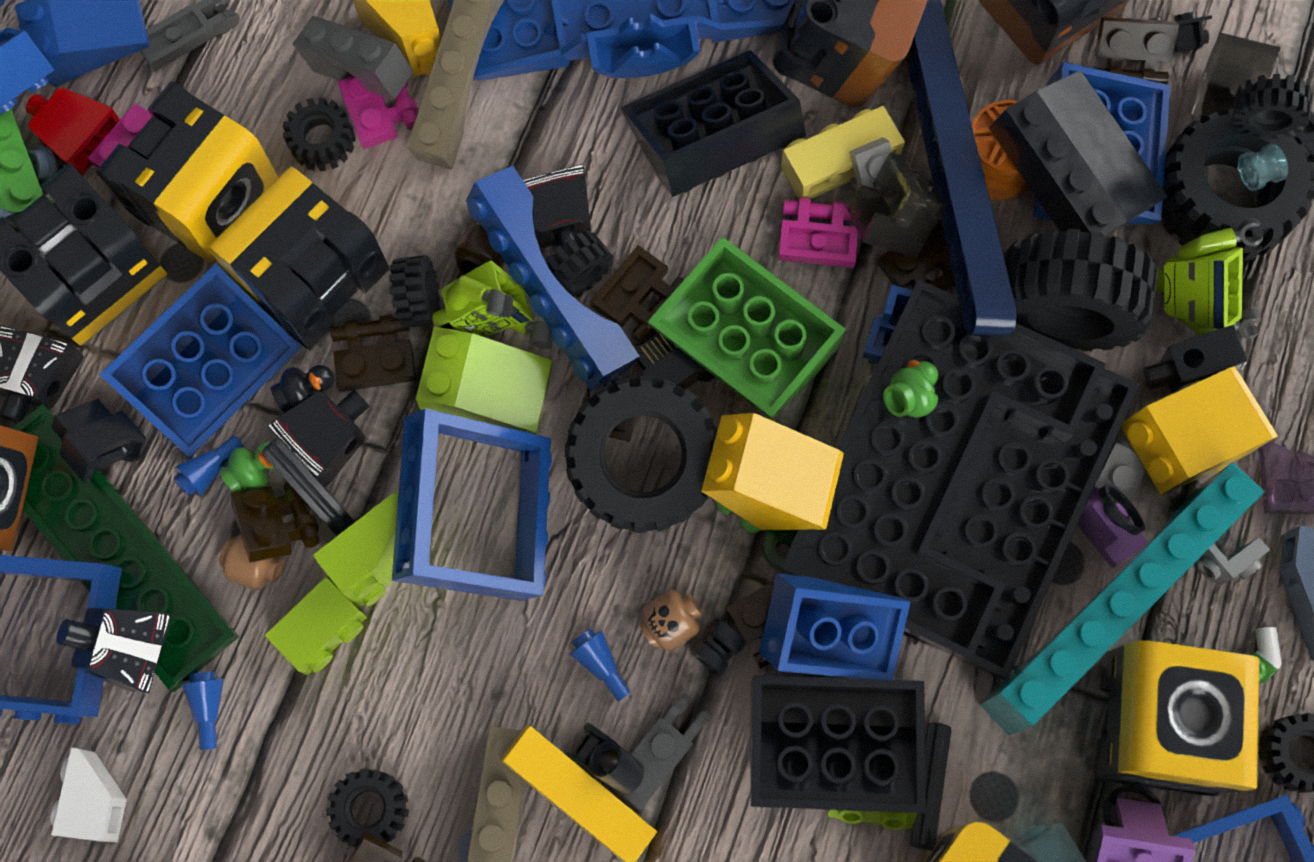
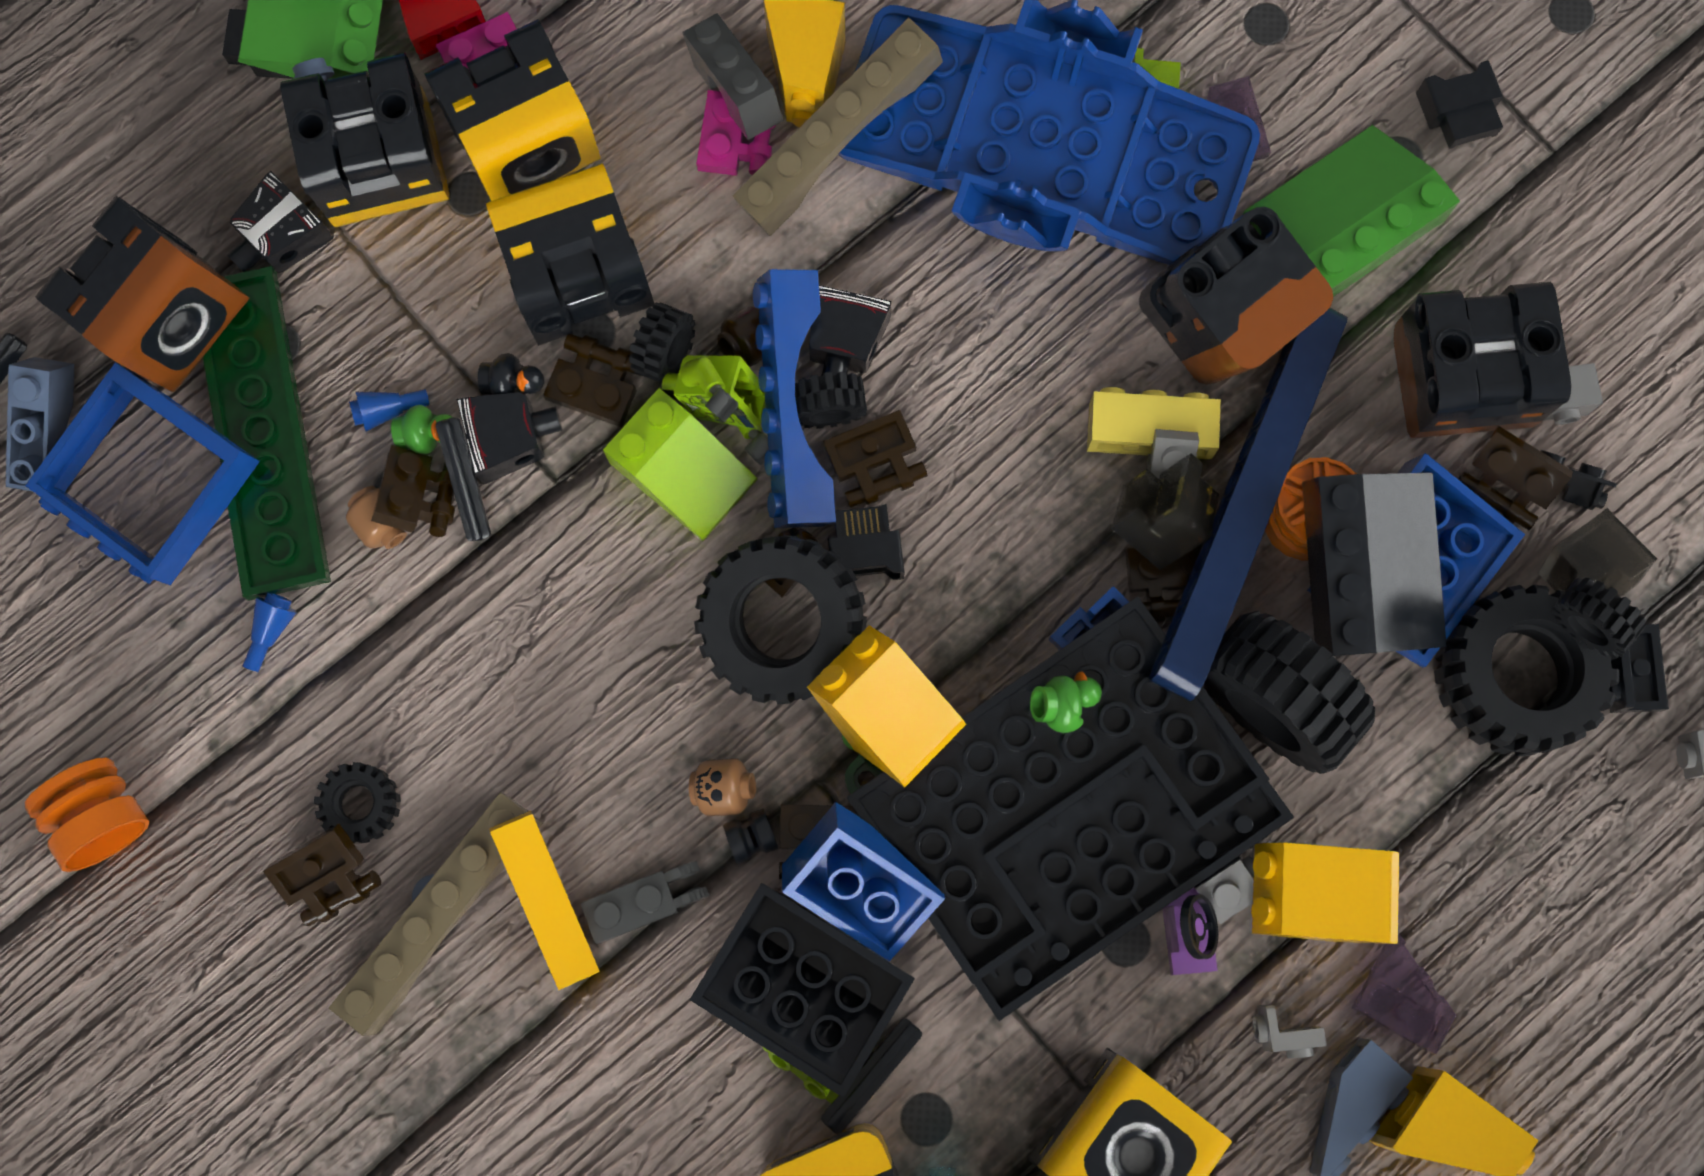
camera: 30 degrees right, 5 degrees up
(43, 162) = (391, 29): sand blue plate -> none
(89, 800) = (124, 657): white slope -> none
(96, 438) = (300, 326): black piece -> none
(117, 645) = (215, 532): black torso -> none
(201, 360) = (431, 302): blue slope -> none
(313, 116) = (662, 113): black tyre -> none
(316, 627) = (402, 613): lime brick -> none
(363, 554) = (490, 569): lime slope -> none
(417, 500) = (544, 548): blue window -> none
(595, 655) = (635, 781): blue cone -> none
(607, 761) = (588, 882): black piece -> none
(715, 122) = (1048, 324): black slope -> none
(748, 328) = (952, 552): bright green slope -> none
(817, 242) = (1076, 500): dark pink plate -> none
(1116, 608) = (1153, 1010): teal arch -> none
(1197, 360) = (1390, 825): black torso -> none
(1206, 282) = (1430, 754): lime torso -> none
(1263, 166) = (1554, 671): clear light blue wheel -> none
(1267, 652) = (1260, 1145): white arm -> none

